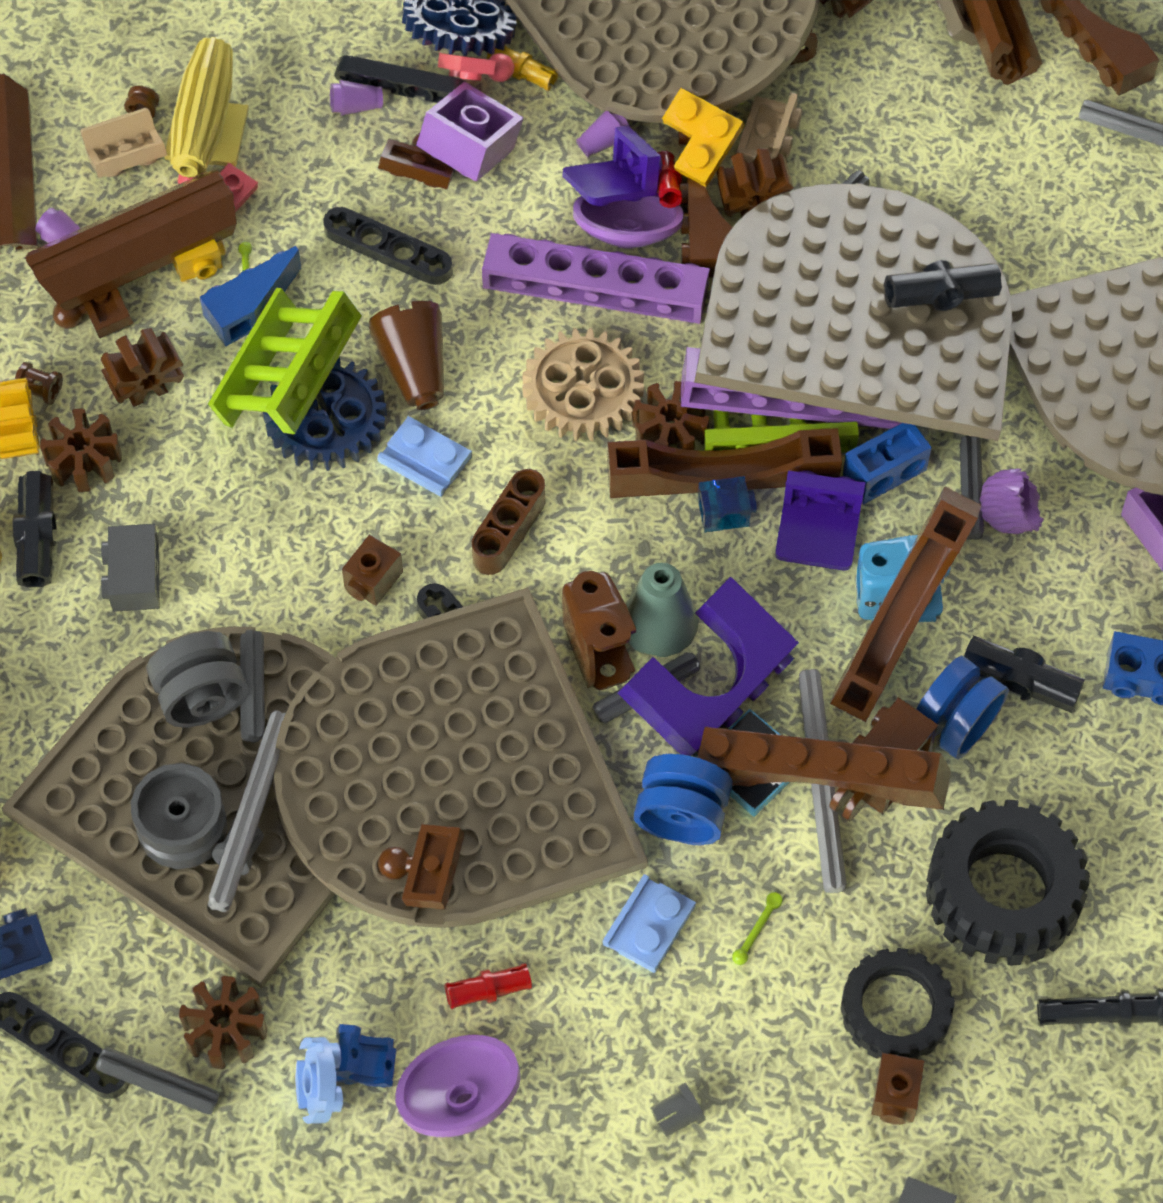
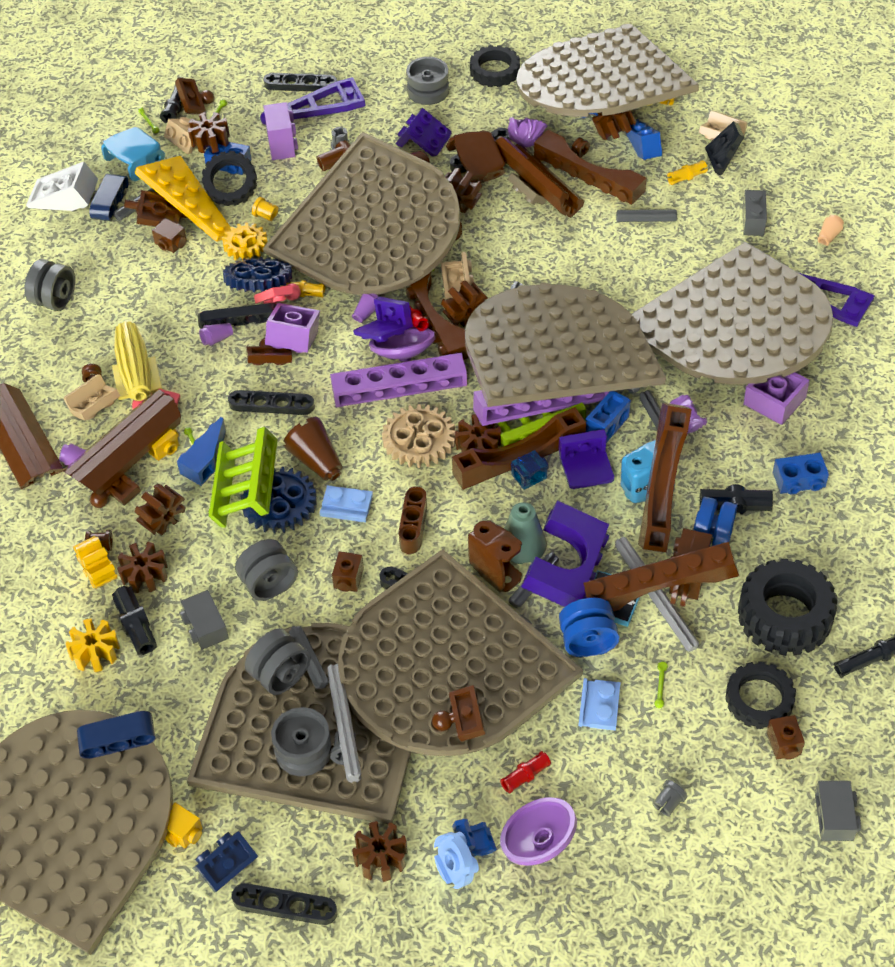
camera: 20 degrees left, 10 degrees down
(157, 1080) = (356, 899): dark grey axle -> none
(251, 524) = (266, 569): none -> dark grey wheel
(710, 132) = (429, 283): yellow plate -> none
(942, 285) = (596, 316): black piece -> none

